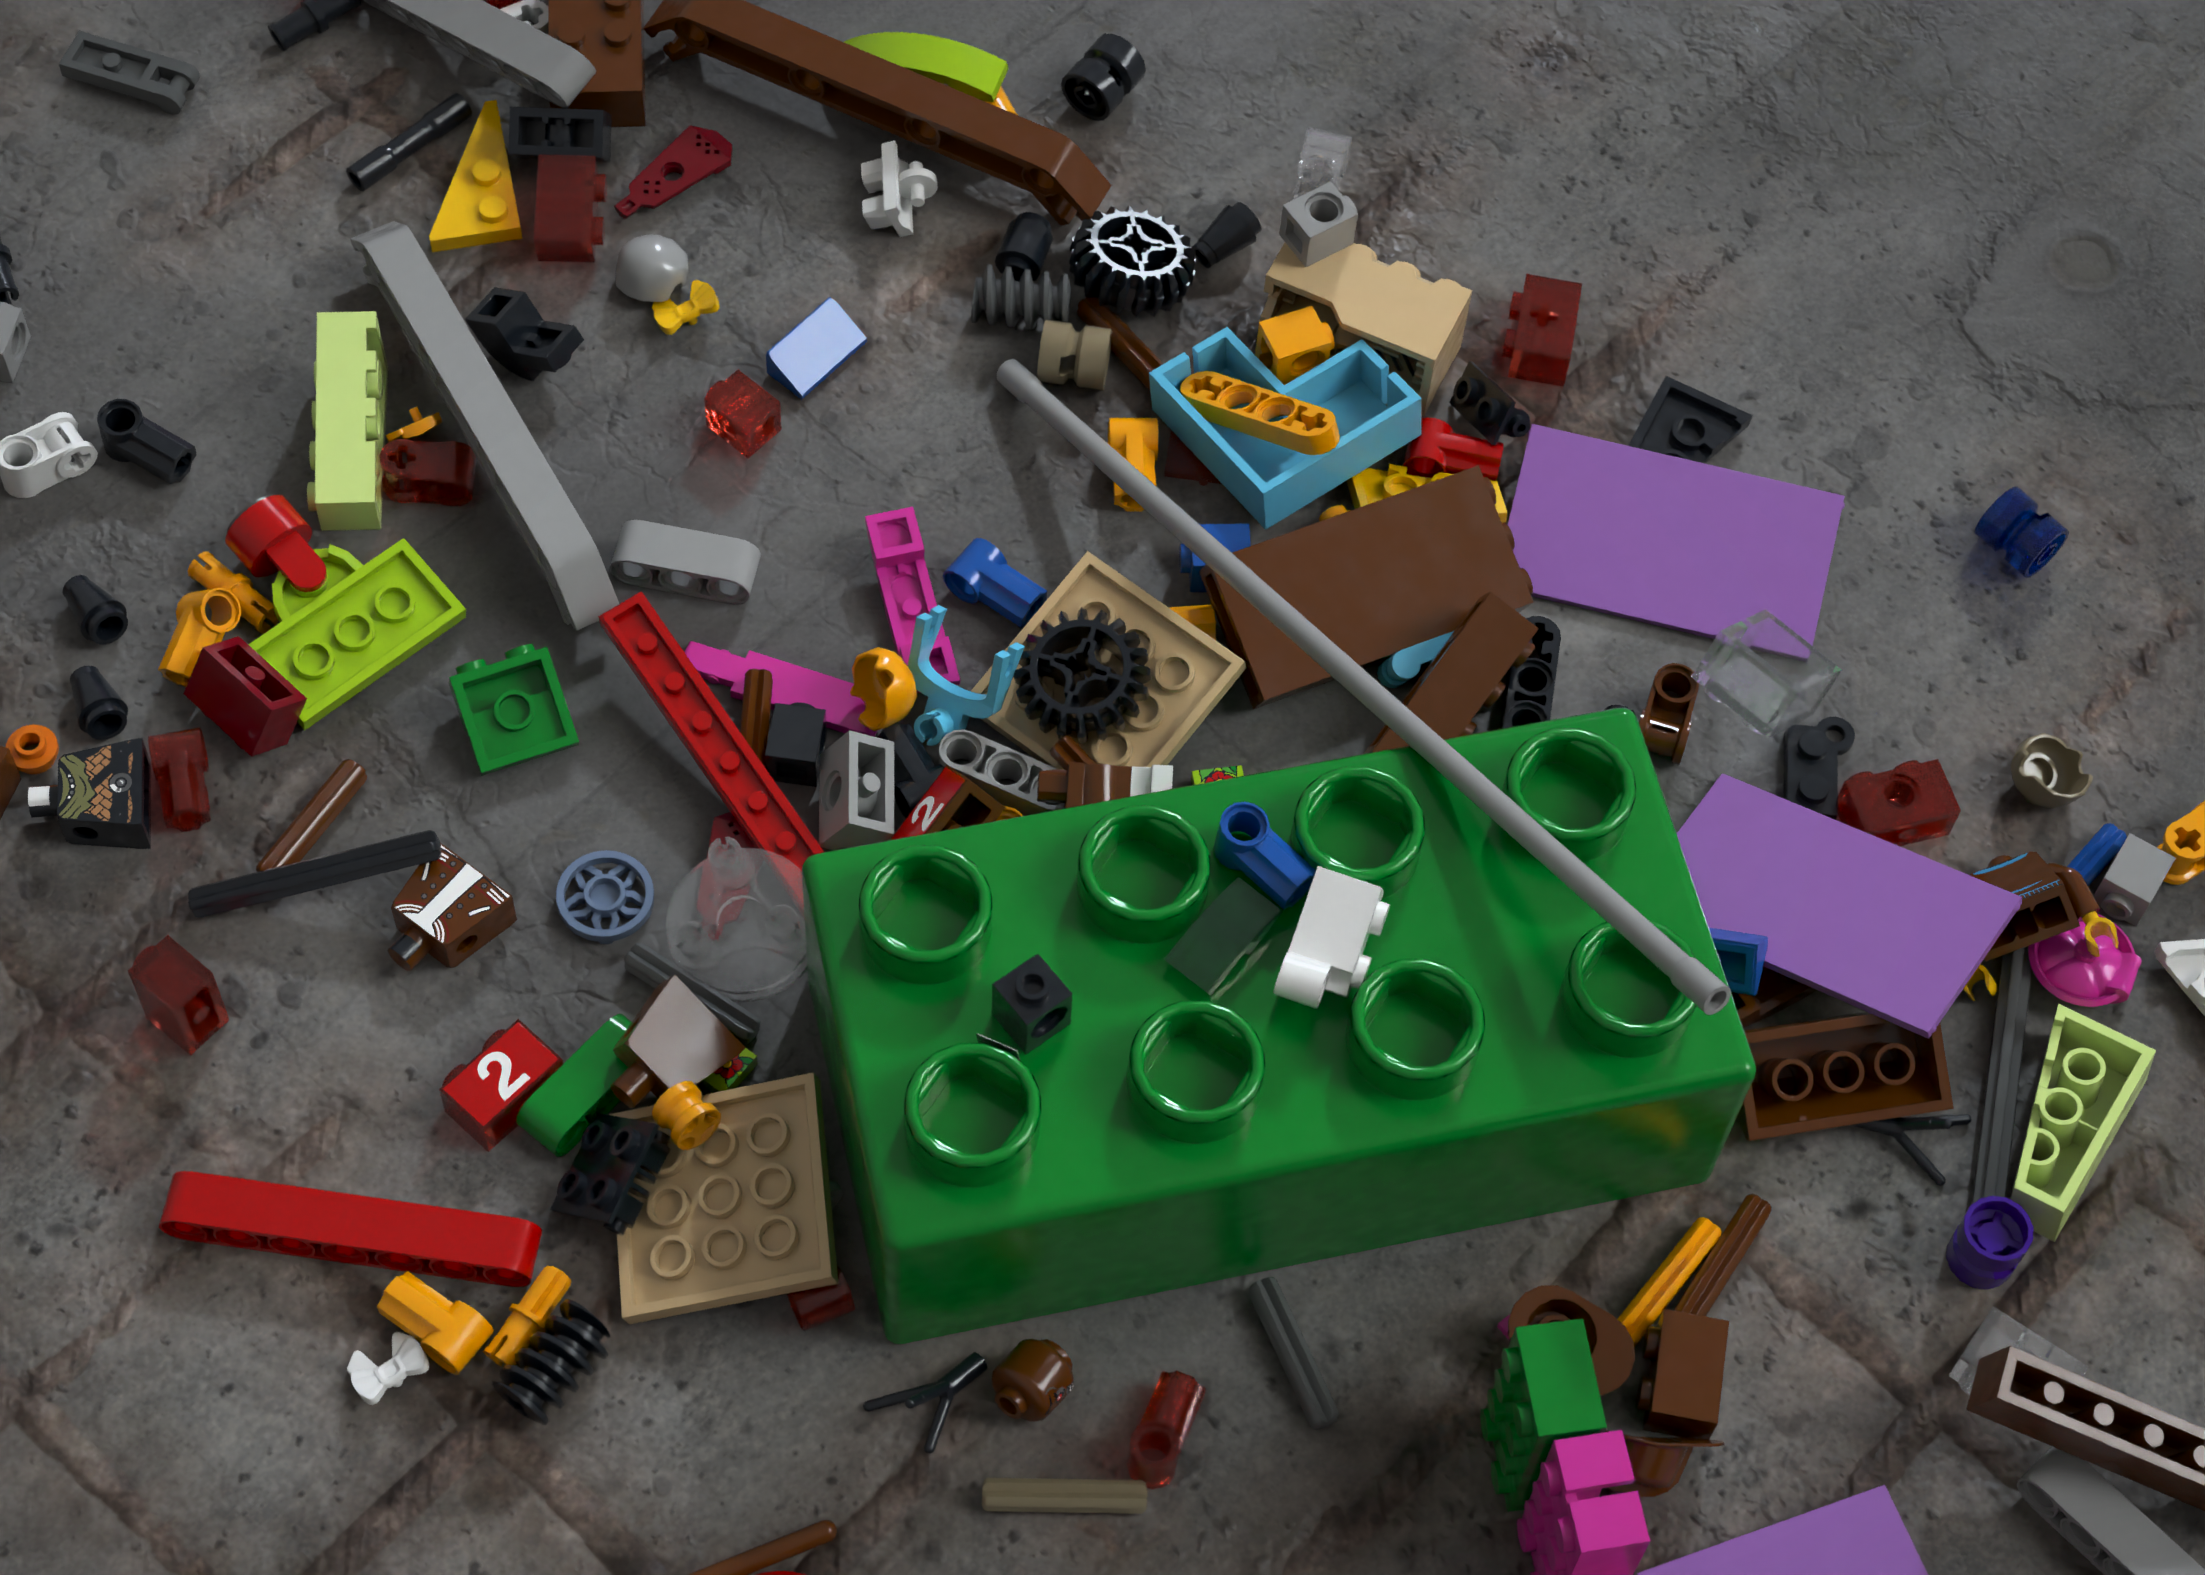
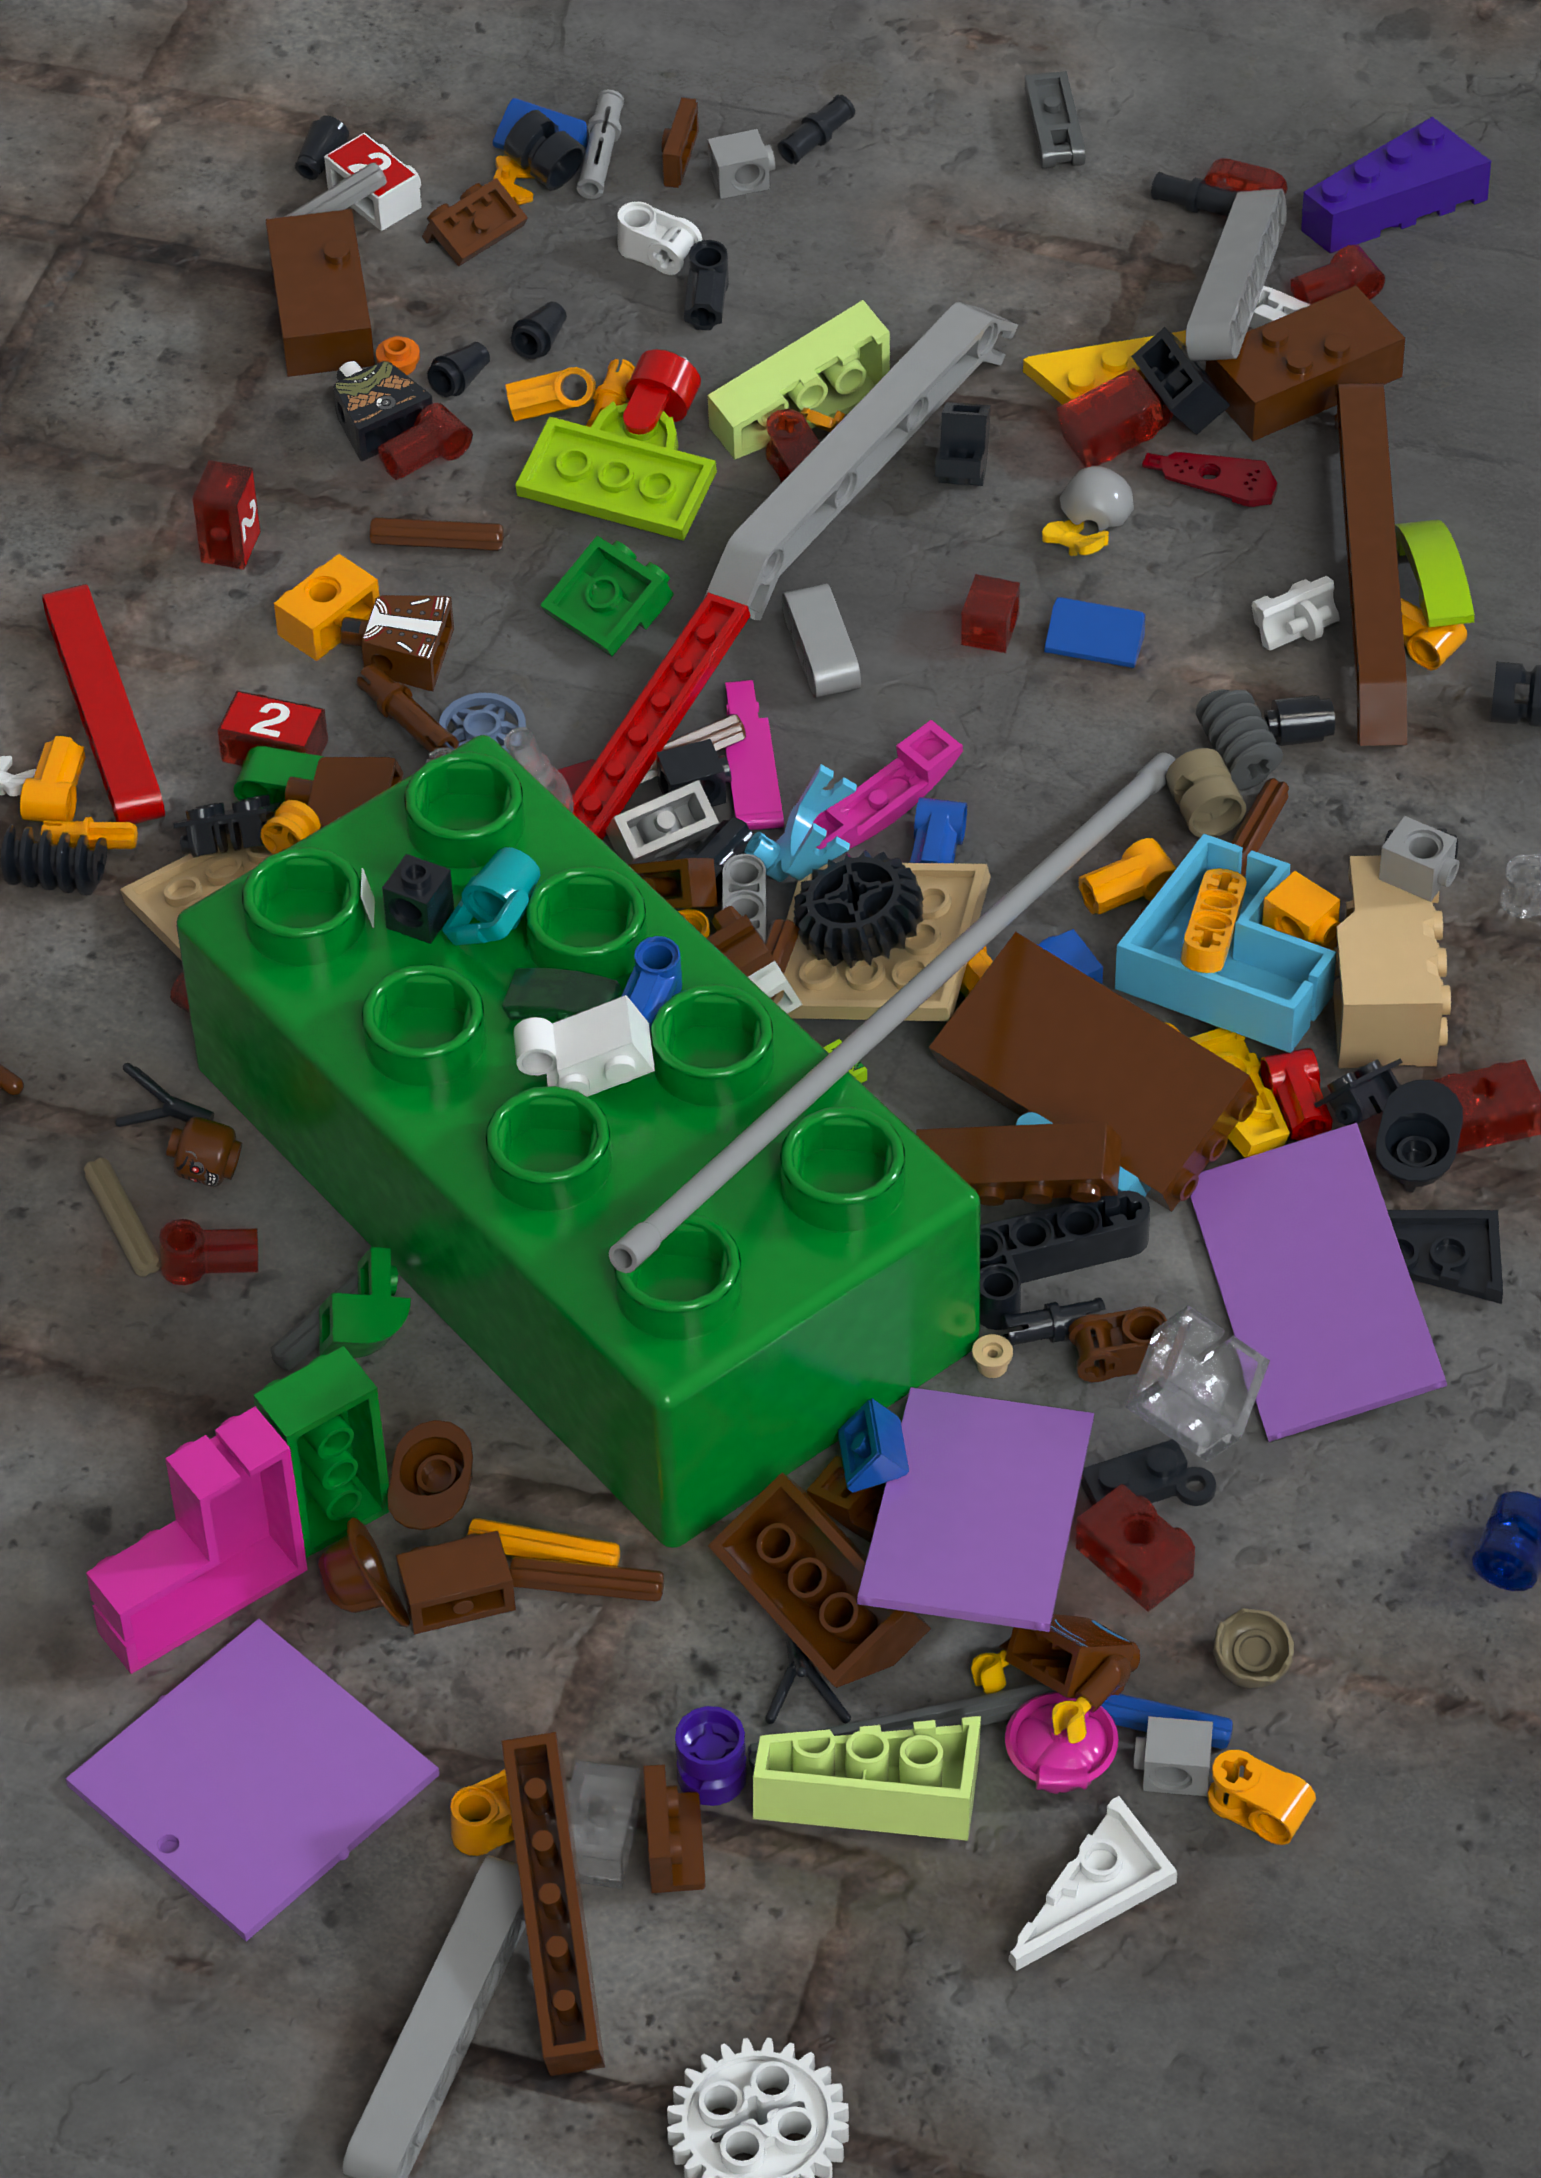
camera: 70 degrees right, 10 degrees down
(245, 696) = (510, 438): dark red brick -> none
(314, 874) = (382, 546): black axle -> none
(351, 933) = (315, 608): none -> light orange brick
(387, 157) = (1088, 300): black piece -> none
(548, 951) = (396, 702): none -> reddish brown pin
(884, 686) = (768, 803): light orange hair -> none
(1071, 929) = (495, 898): none -> teal piece
(1132, 261) = (1331, 801): black gear -> none
(1336, 1312) = (364, 1319): none -> green brick
(1568, 386) = (1419, 1133): none -> black piece
(1966, 1443) = (485, 1802): none -> light orange piece
(2060, 1317) = (673, 1835): none -> reddish brown bracket

